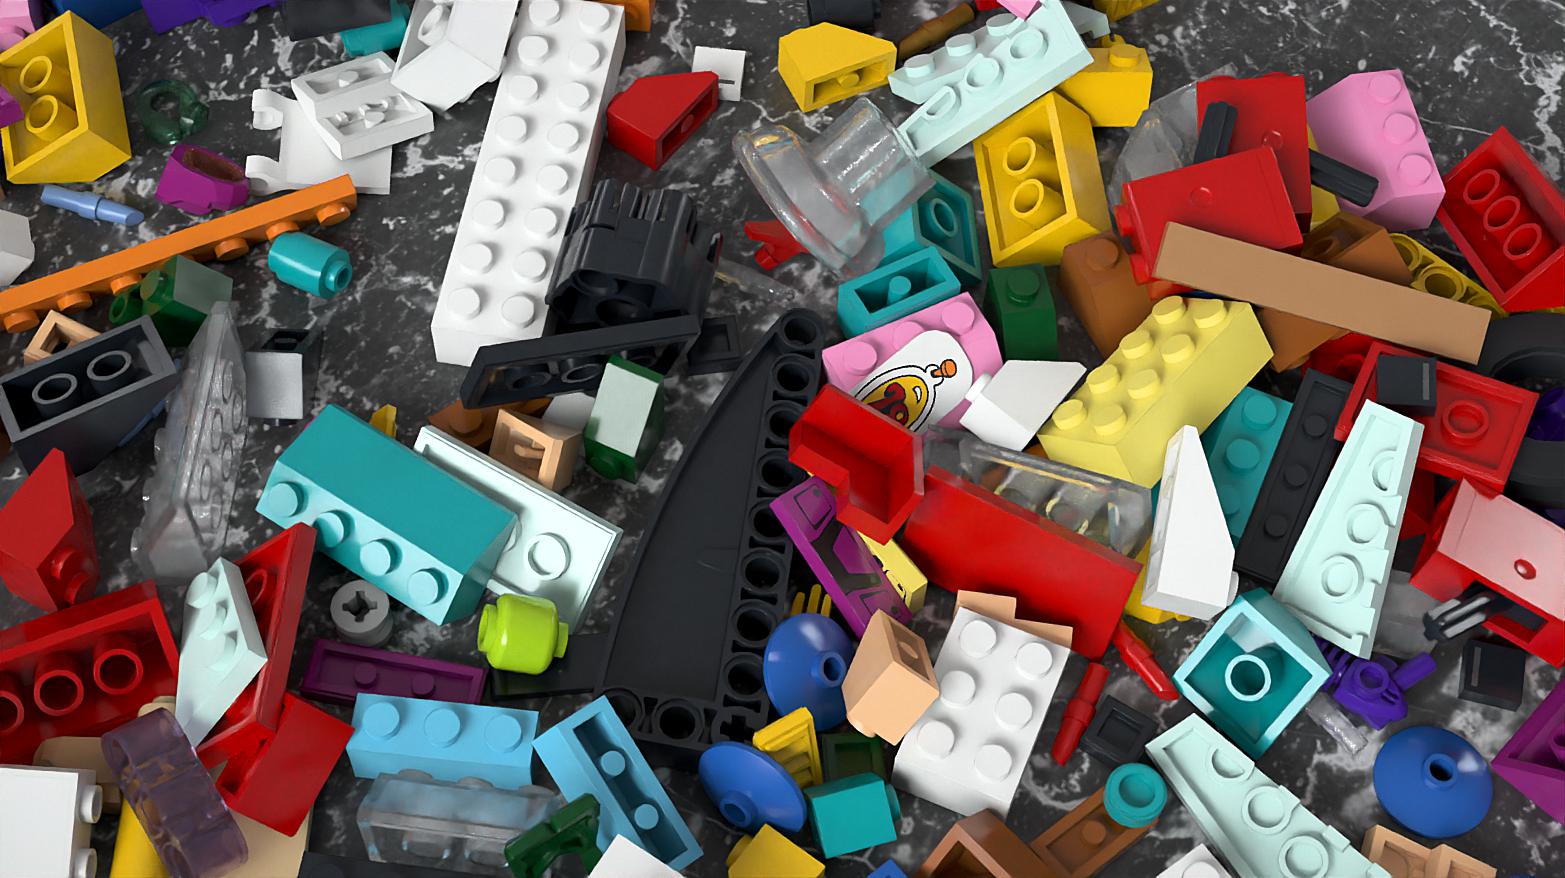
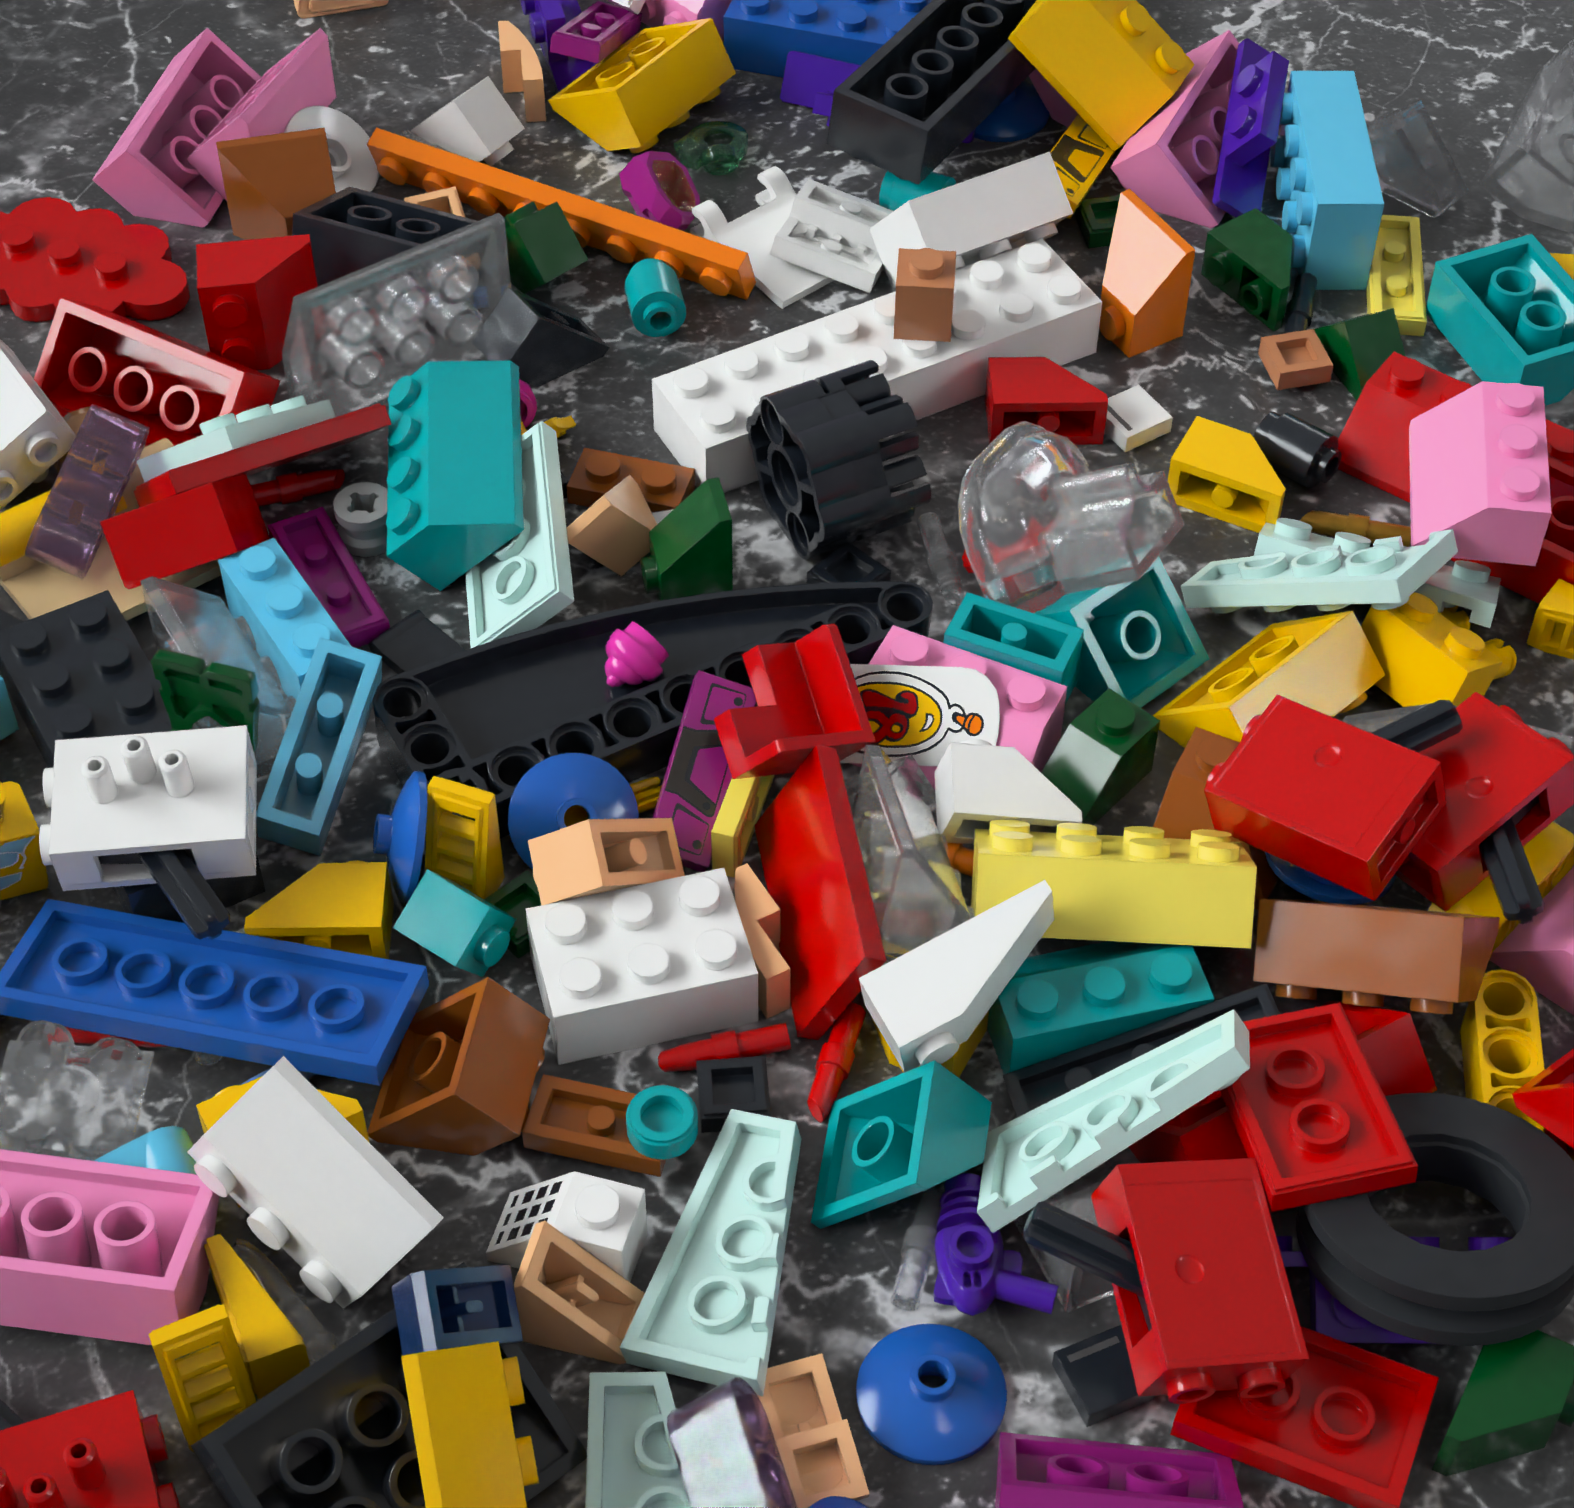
camera: 55 degrees right, 10 degrees down
(91, 205) = (583, 161): medium blue piece -> none
(522, 633) = (427, 608): lime head -> none
(545, 100) = (924, 294): none -> nougat brick
(573, 360) = (682, 457): black tile -> none
(709, 529) = (633, 656): none -> dark pink plate
(1321, 293) = (1338, 926): medium nougat tile -> none
(1406, 384) = (1300, 1046): black tile -> none

